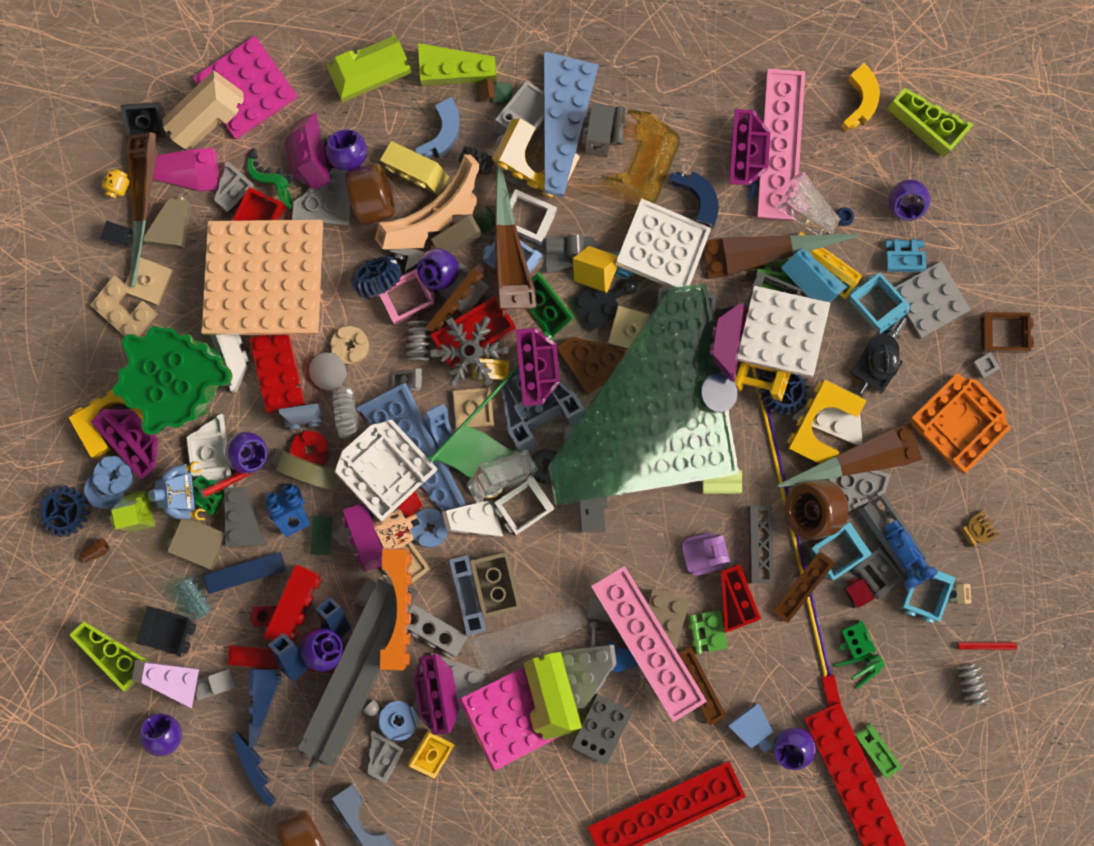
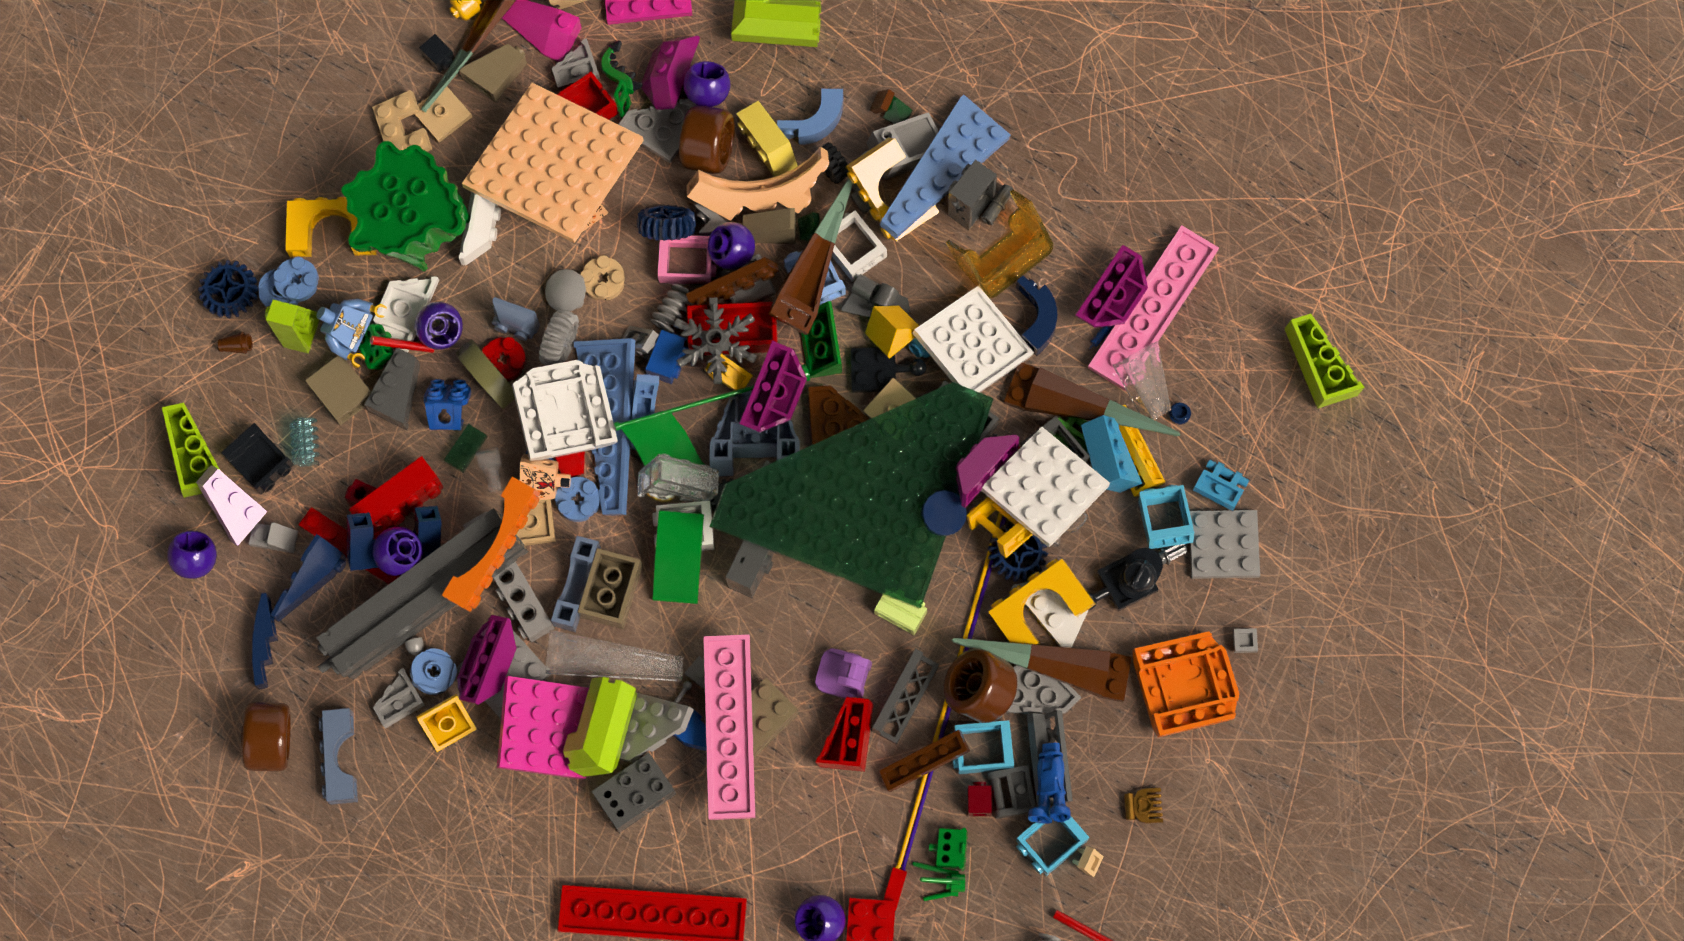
camera: 35 degrees right, 10 degrees down
(125, 434) = (332, 254): magenta wedge -> none
(244, 573) = (368, 443): dark blue slope -> none
(277, 372) = (516, 263): red piece -> none
(363, 537) = (503, 465): magenta wedge -> none
(435, 381) = (664, 357): none -> blue brick
(453, 66) = (862, 62): lime wedge -> none
(467, 401) = (689, 392): tan tile -> none
(475, 519) = (626, 510): white wing -> none
(534, 532) = (678, 557): none -> green slope
(712, 708) = (760, 827): reddish brown plate -> none
(713, 629) = (804, 766): bright green plate -> none
(752, 728) = (790, 878): medium blue torso -> none
(868, 89) = (1275, 294): yellow arch -> none
(911, 207) = (1247, 436): dark purple wheel -> none
(986, 331) = (1294, 601): reddish brown window -> none

